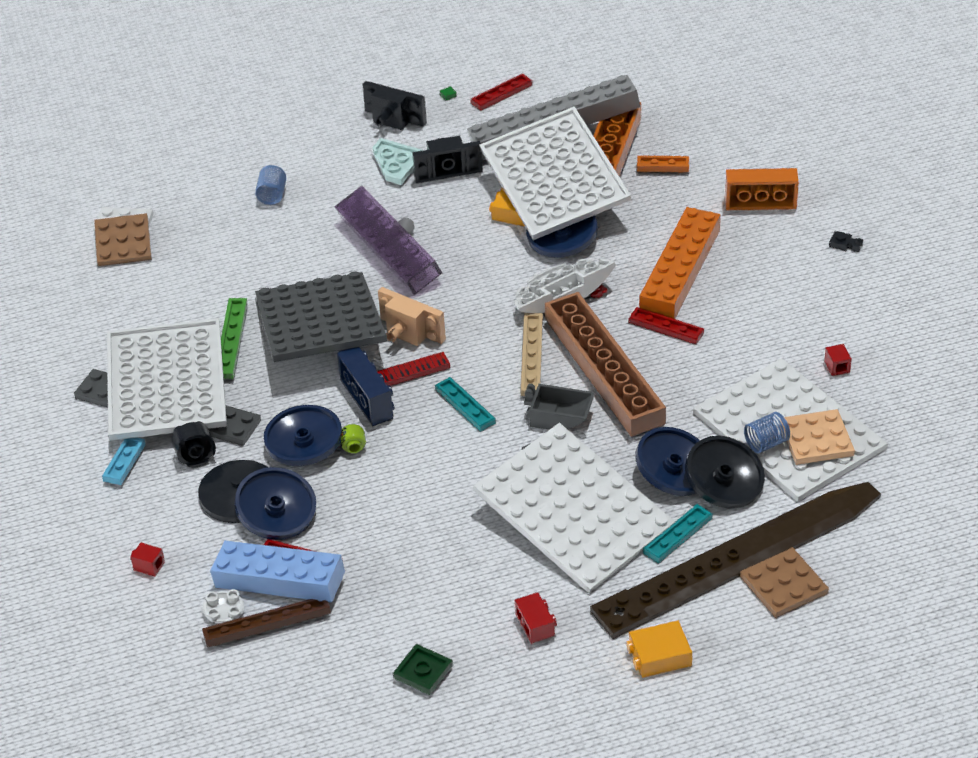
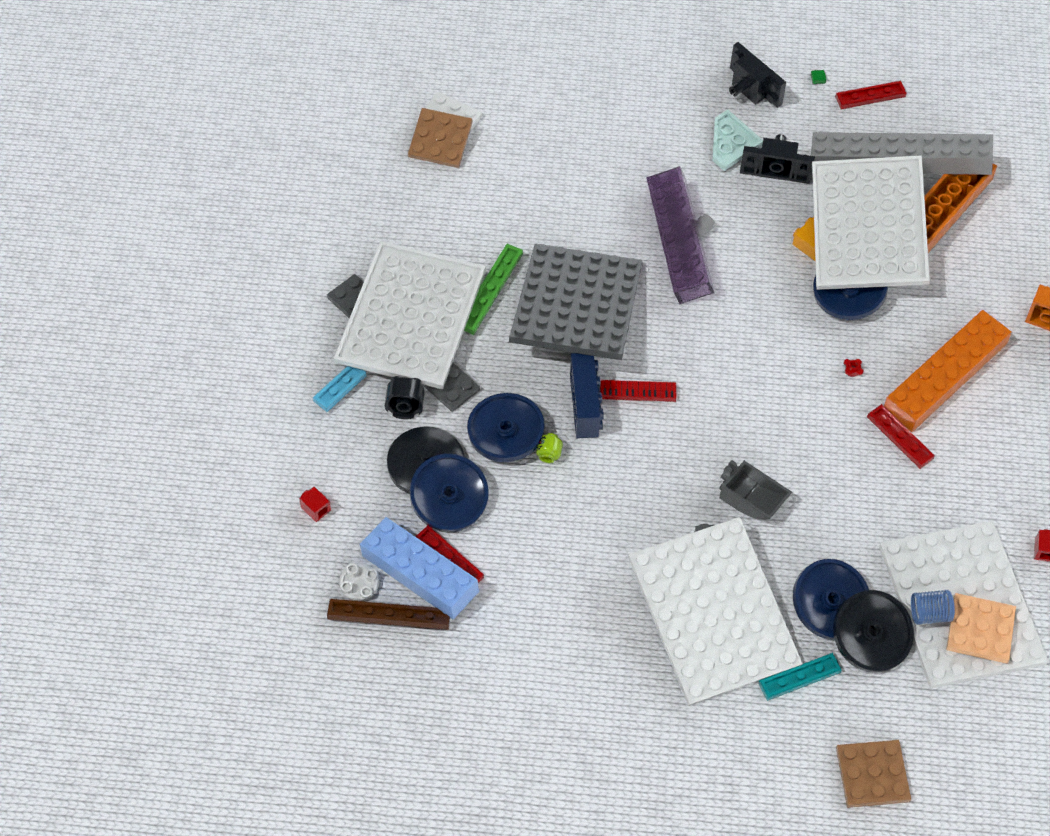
camera: 20 degrees right, 15 degrees up
(261, 183) = (610, 129): medium blue piece -> none
(410, 319) = (658, 336): light nougat brick -> none
(423, 669) = (502, 724): dark green plate -> none
(465, 404) = (670, 449): teal tile -> none
(531, 350) = (757, 418): tan plate -> none
(535, 617) = (624, 715): red brick -> none
(562, 281) = (819, 352): white brick -> none
(605, 364) = (818, 460): nougat brick -> none
(659, 649) = (721, 797): light orange brick -> none
(662, 163) = (987, 243): orange plate -> none
(726, 560) = (842, 725): dark brown wedge -> none

